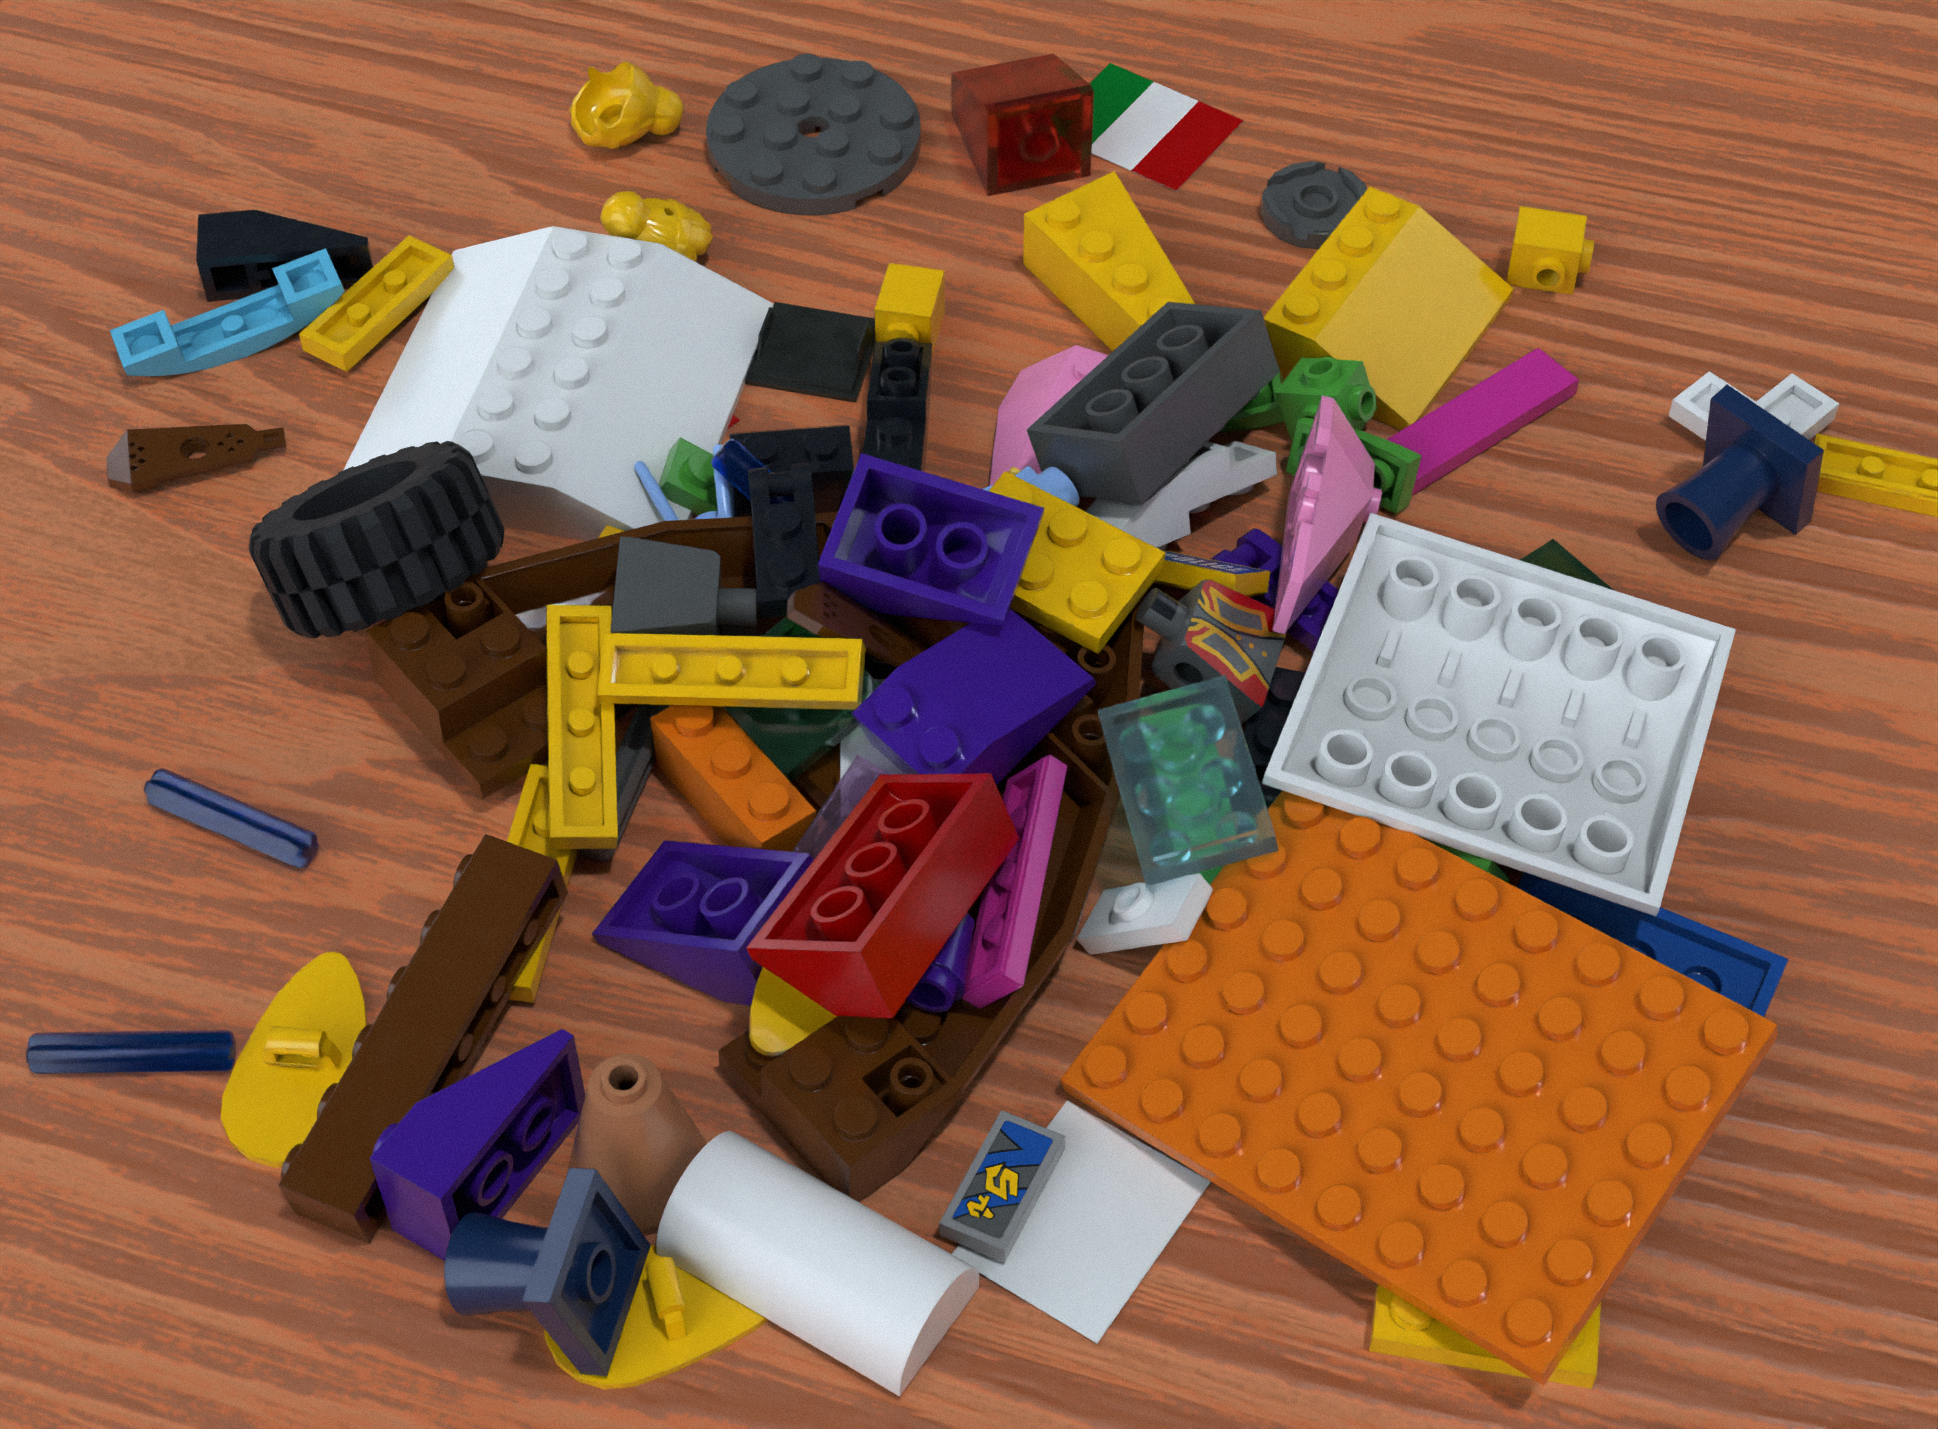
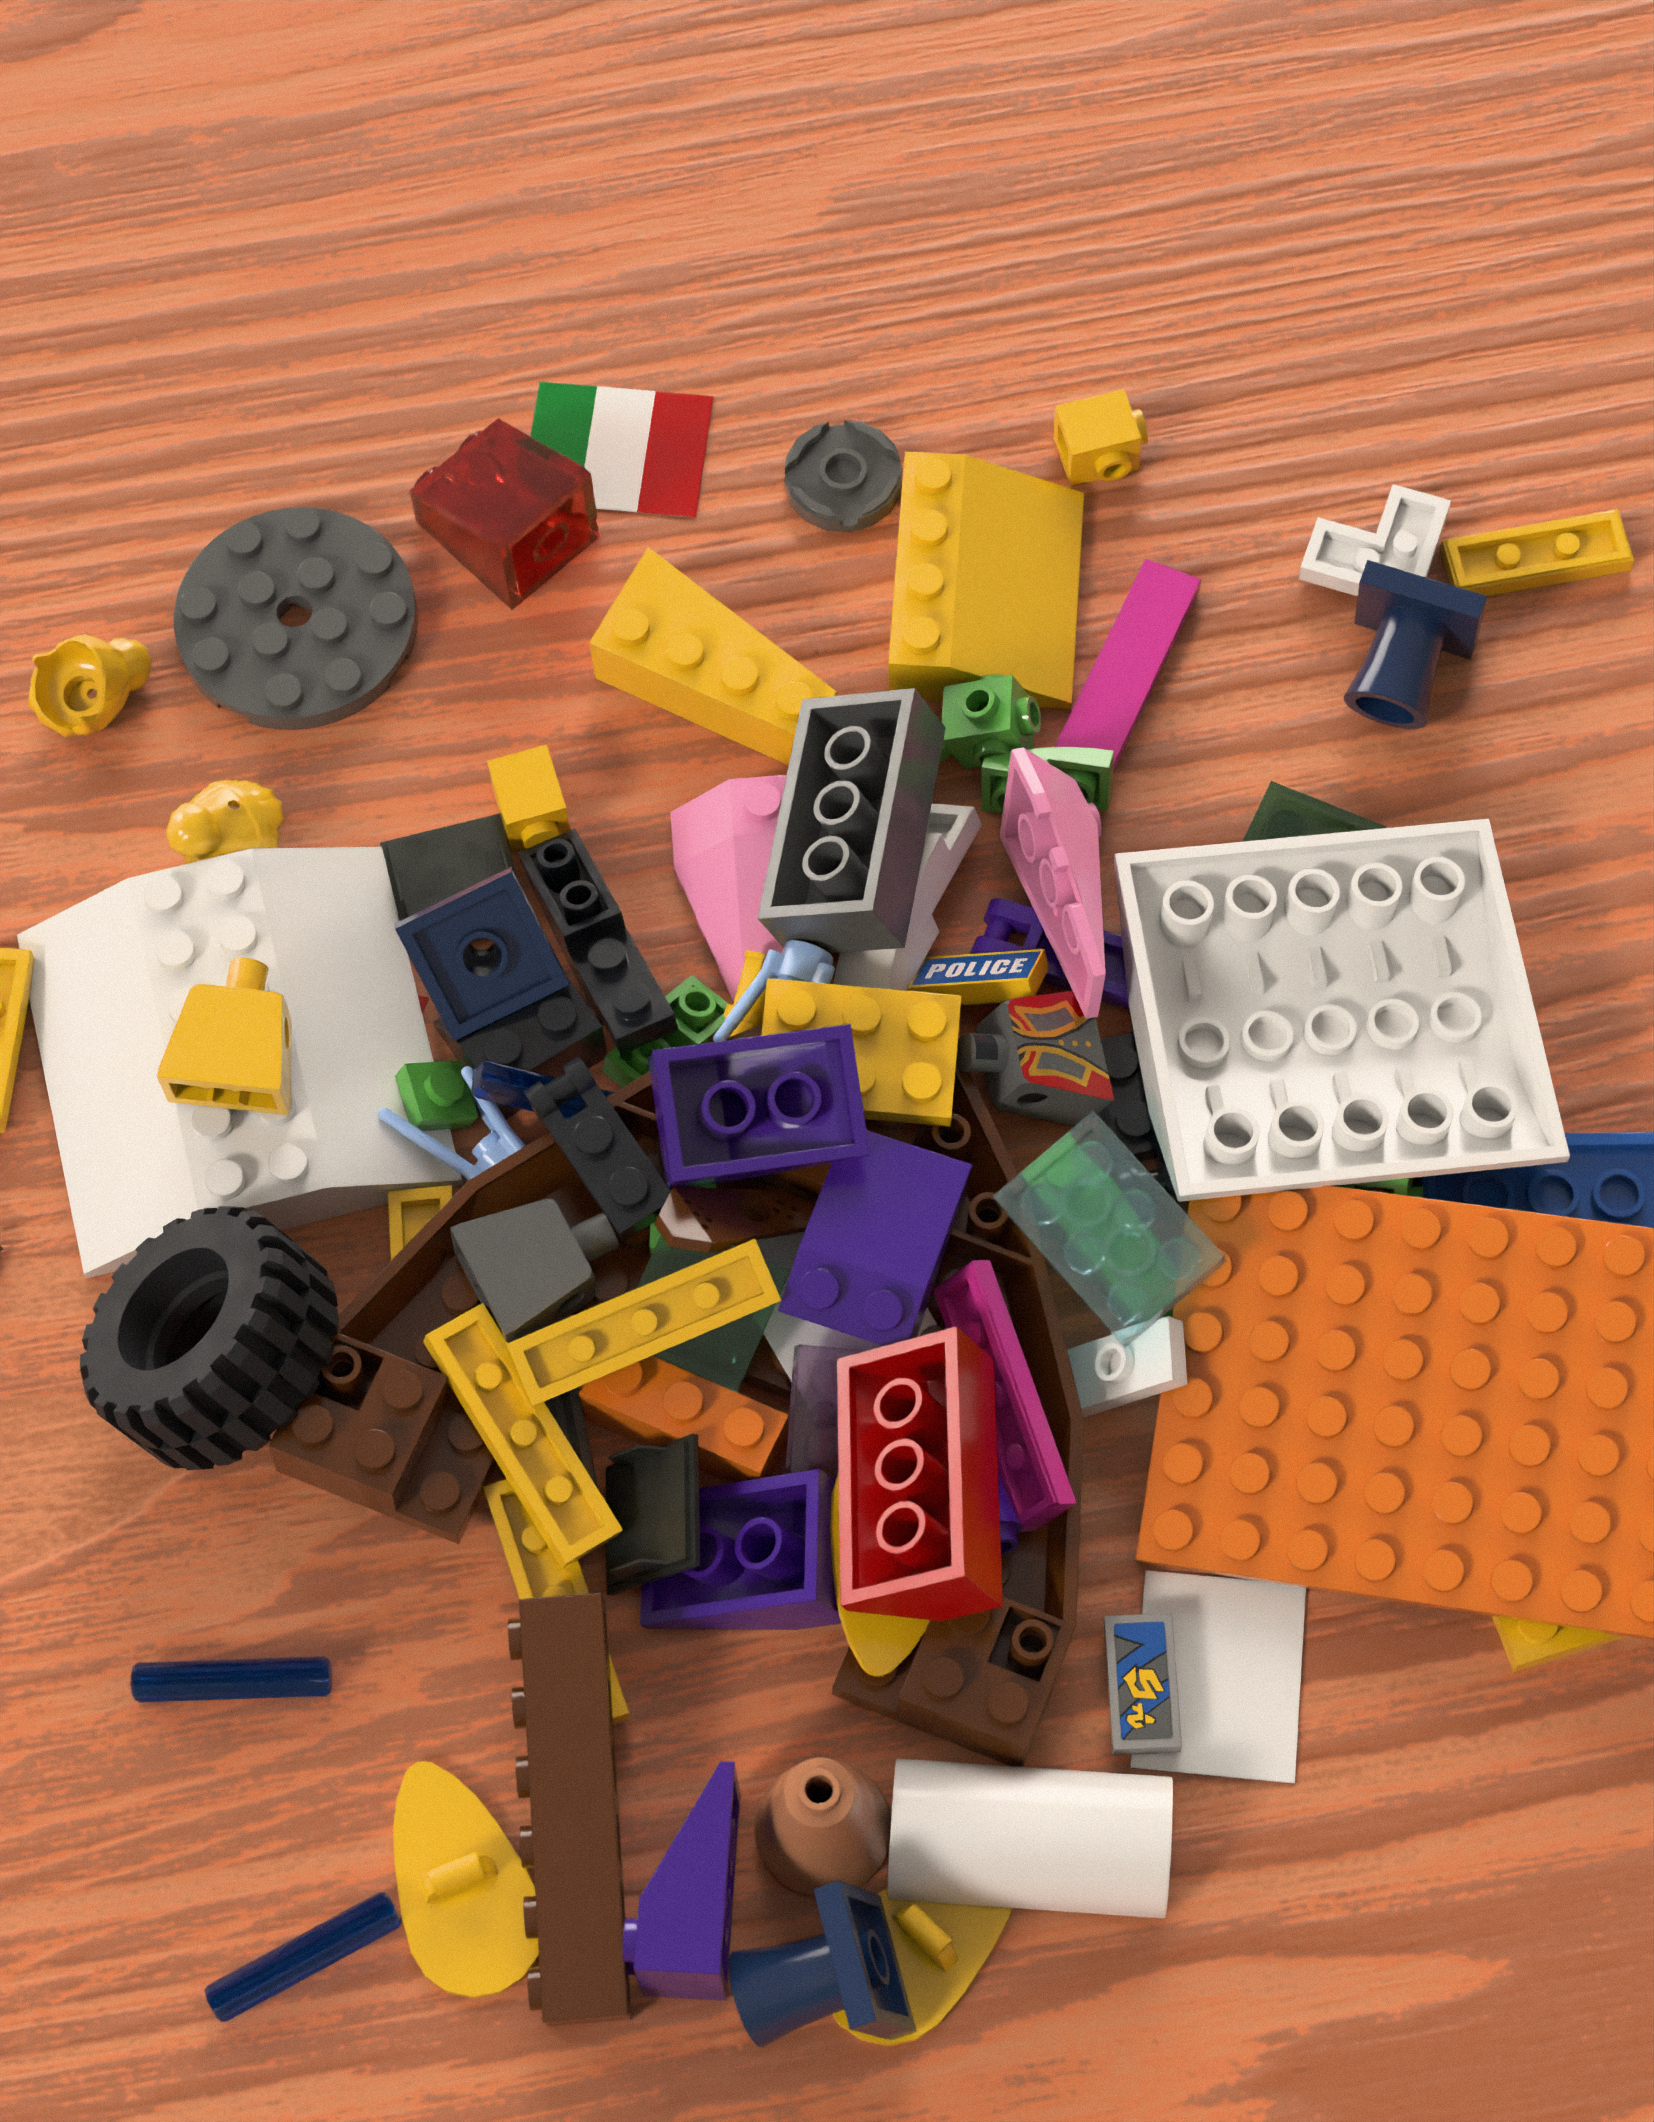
camera: 25 degrees left, 15 degrees up
(540, 347) = (231, 1045): none -> yellow torso
(652, 838) = (657, 1506): none -> pearl dark grey piece
(762, 352) = (487, 984): none -> dark blue plant

